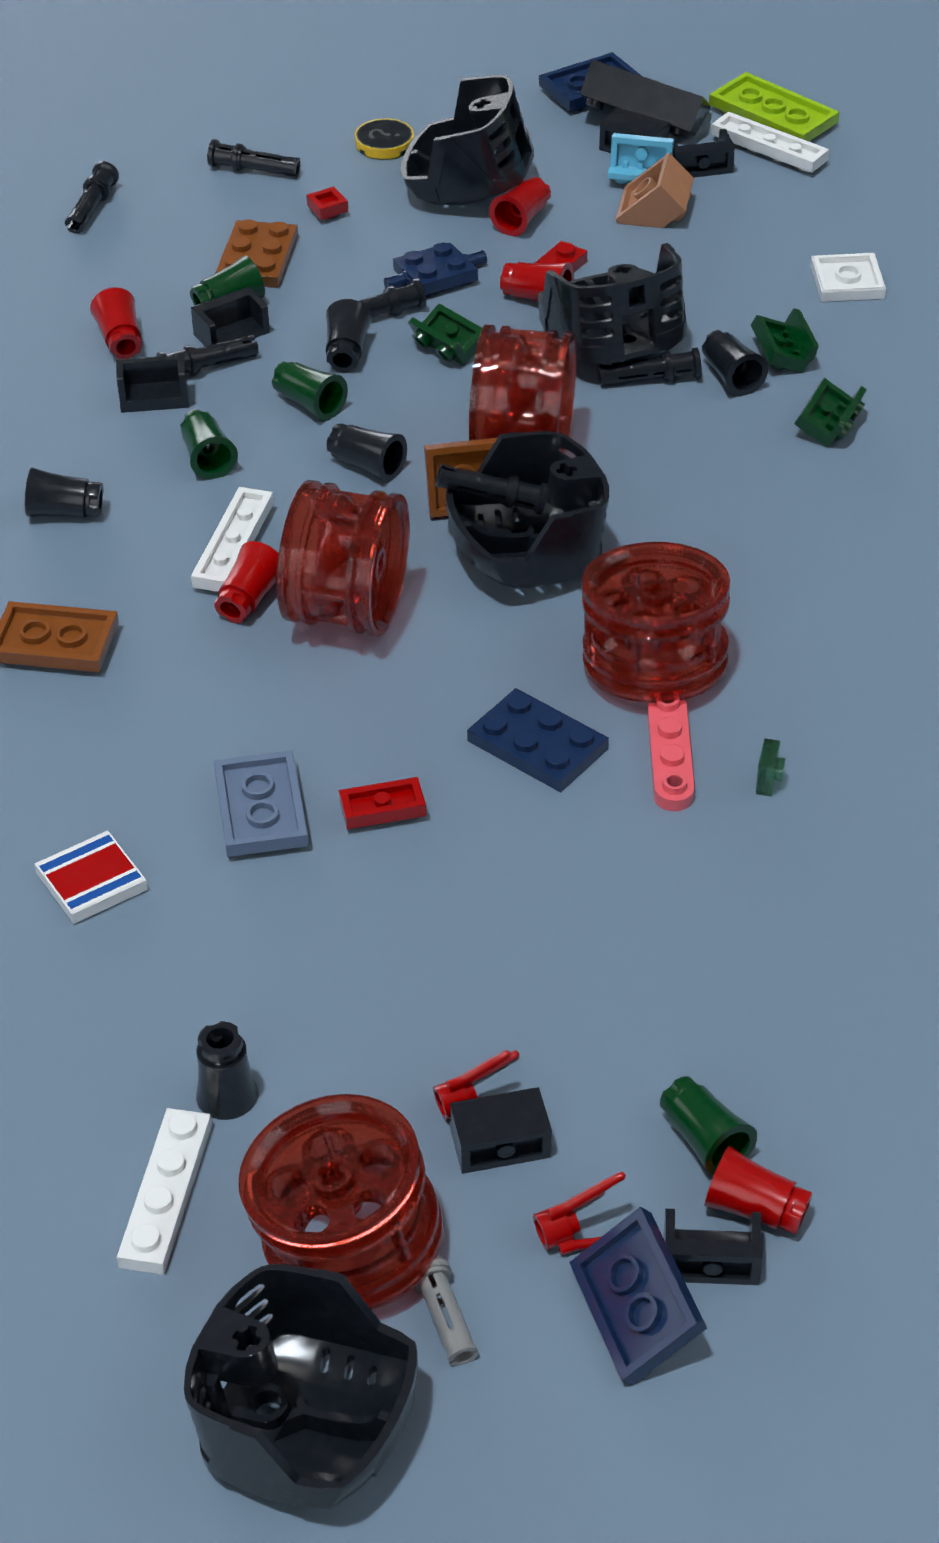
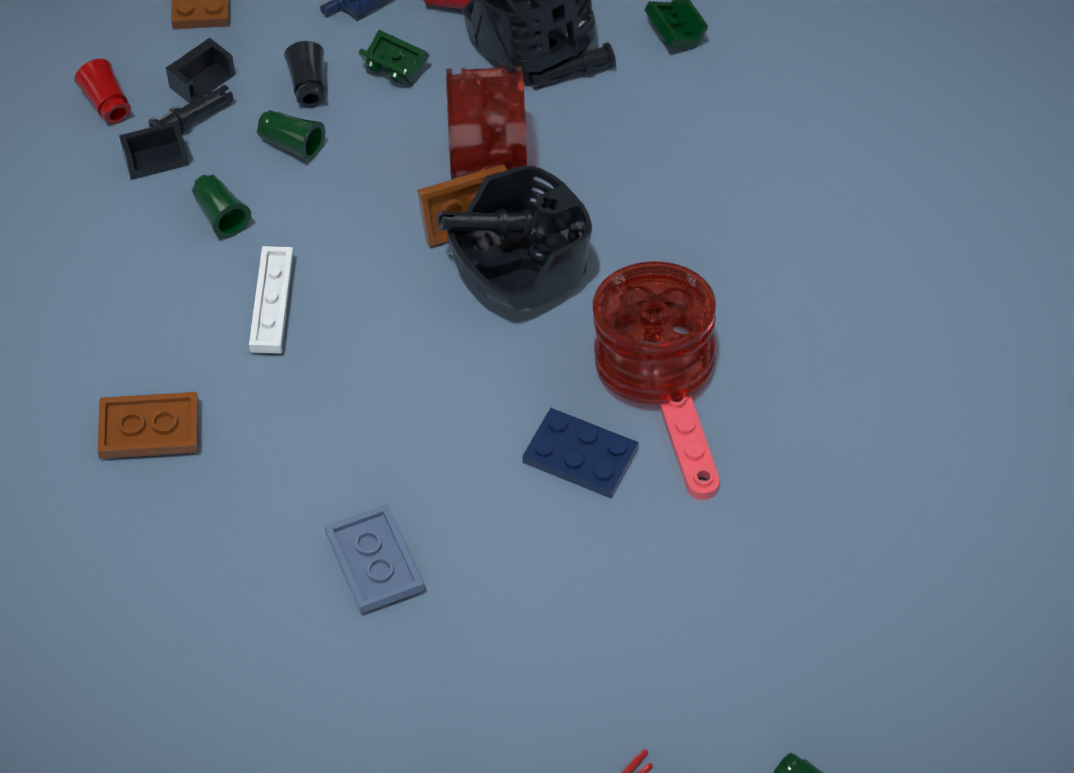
camera: 15 degrees left, 10 degrees up
(61, 495) = (112, 280): black plant -> none
(91, 877) = (253, 655): tile -> none
(234, 277) = (188, 35): dark green plant -> none
(248, 581) = (299, 342): red plant -> none
(343, 557) = (383, 315): clear red wheel -> none
(369, 450) = (361, 190): black plant -> none
(382, 803) = (474, 539): red plate -> none
(396, 299) = (334, 28): black pin -> none
(735, 363) = (641, 50): black plant -> none
(770, 767) = (774, 448): clear green plate -> none
(829, 412) = (732, 89): dark green bracket -> none

